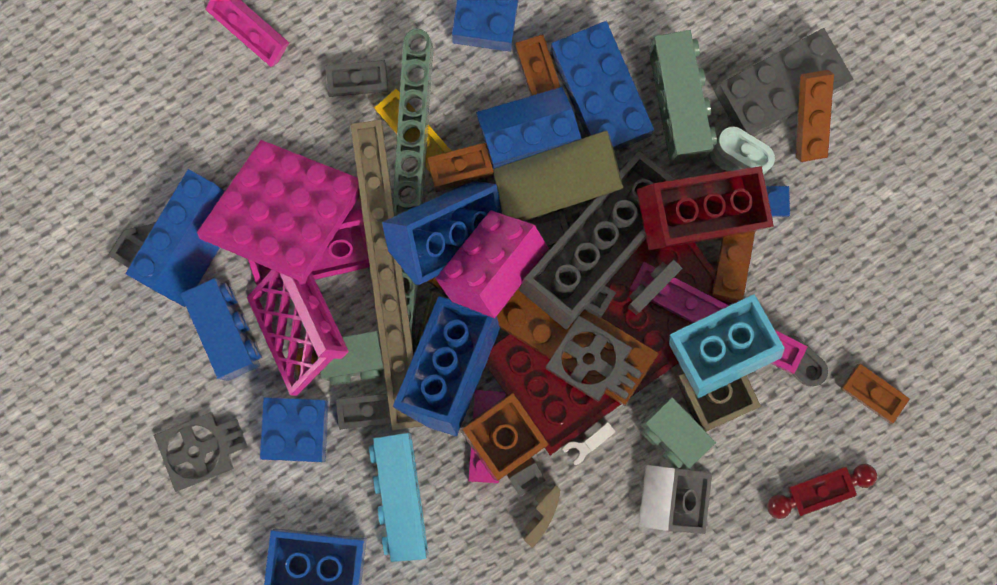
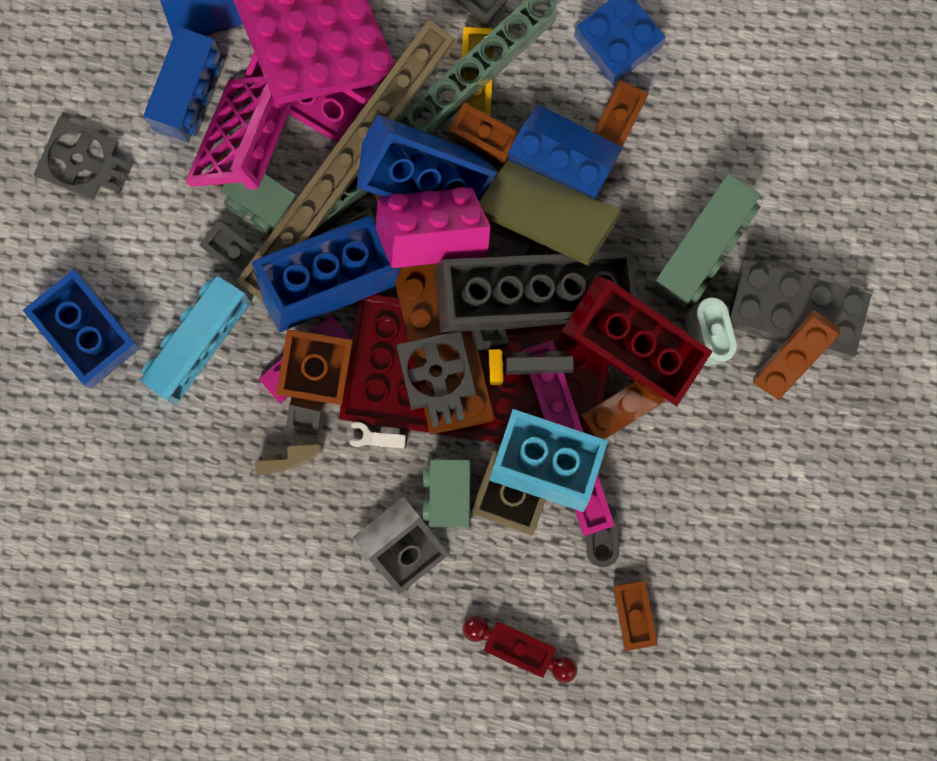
camera: 50 degrees right, 0 degrees up
(294, 429) = (165, 213): blue brick -> none
(601, 86) = (653, 176): blue brick -> none
(624, 317) = (495, 367): none -> yellow tile
(779, 200) = (703, 394): blue plate -> none

